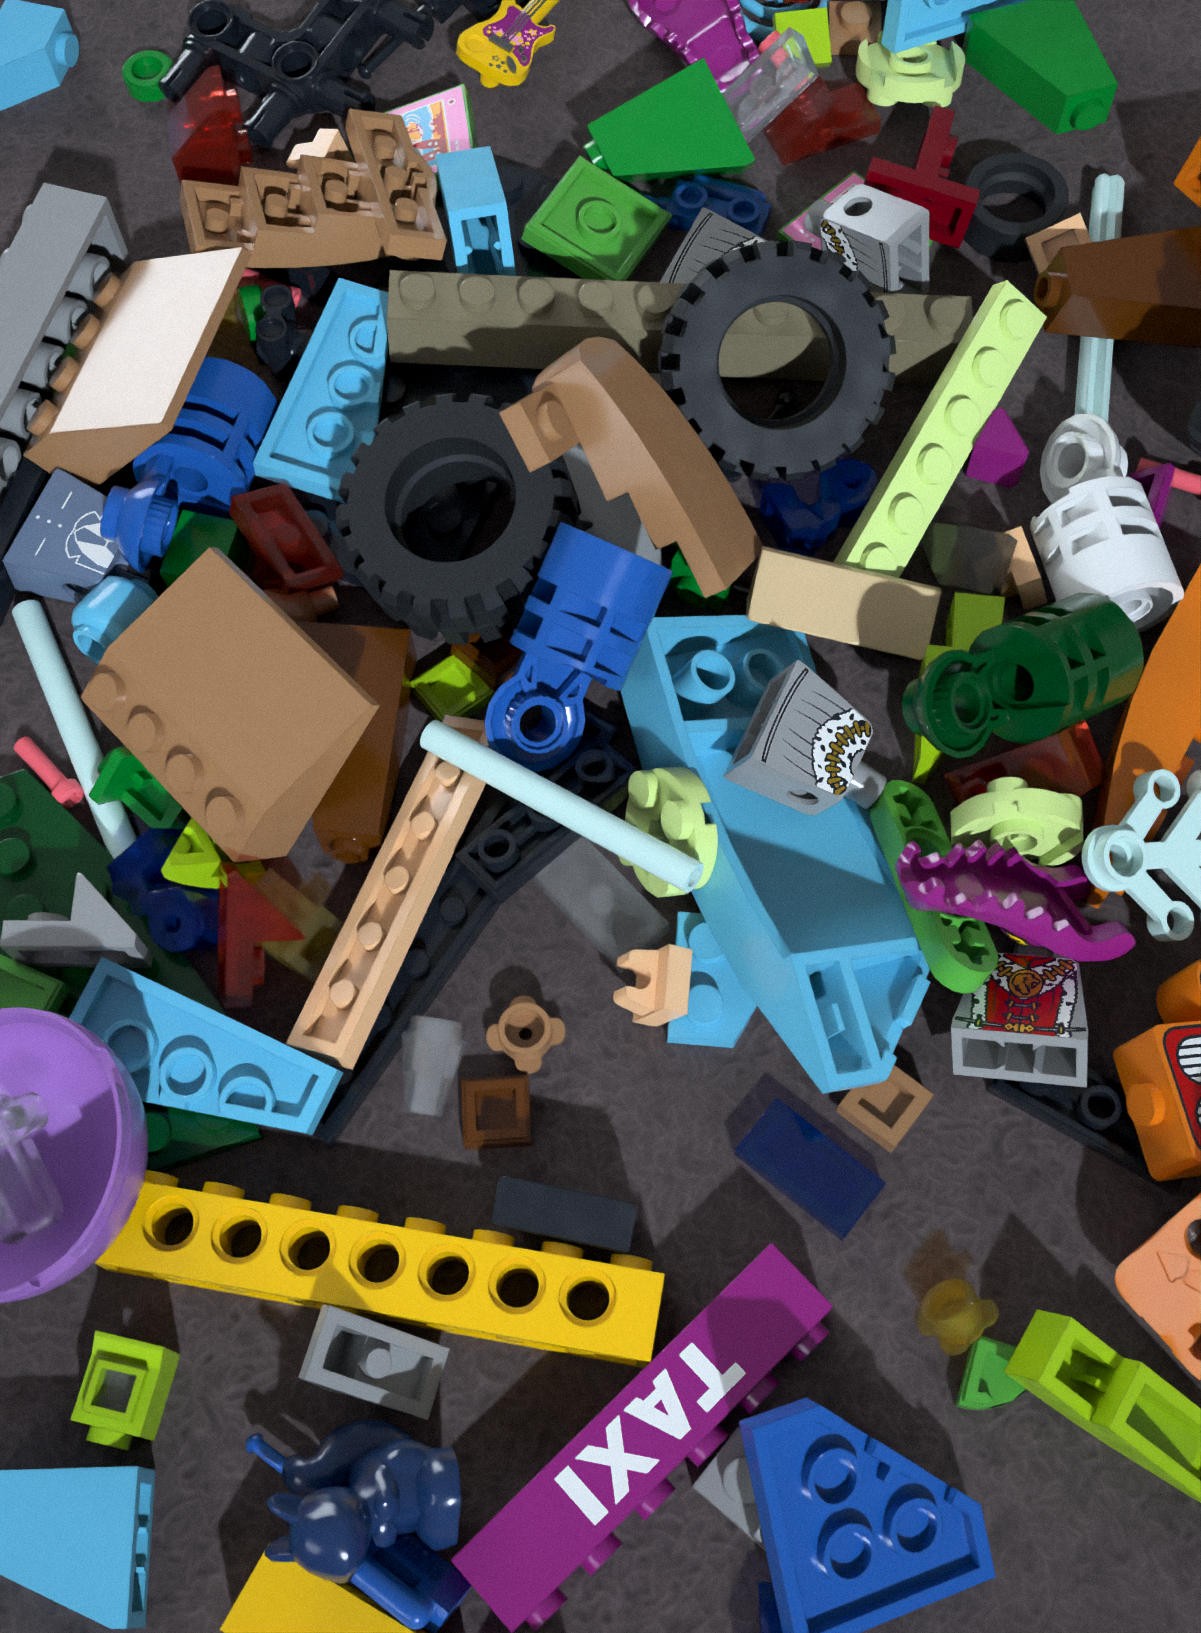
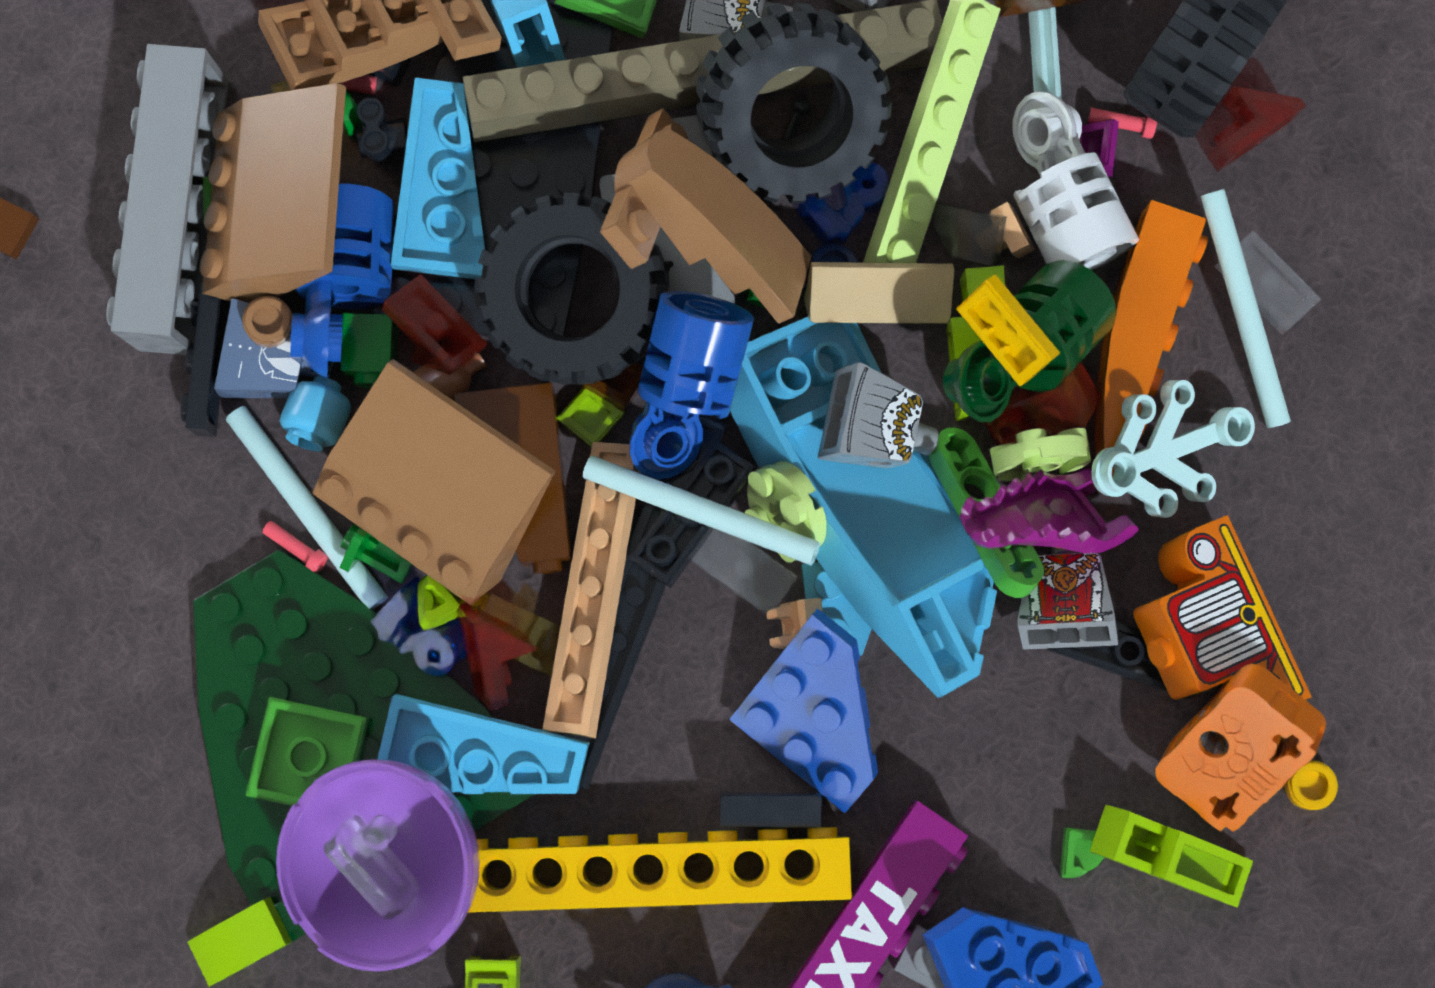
camera: 15 degrees left, 15 degrees up
(81, 942) = (381, 679): light grey slope -> none
(84, 495) = (267, 321): none -> medium nougat tile
(373, 1362) = (662, 938): light grey slope -> none
(430, 1063) = (647, 717): clear cone -> none
(496, 1112) = (702, 740): reddish brown tile -> none
(525, 1015) = (715, 692): medium nougat plate -> none
(654, 1097) = (815, 712): none -> plate
(809, 1168) = (932, 735): clear blue tile -> none
(886, 1108) = (985, 688): medium nougat plate -> none
(955, 1315) = (1041, 813): clear yellow plate -> none
(998, 452) = (979, 128): magenta slope -> none
(998, 638) = (1007, 330): none -> yellow plate

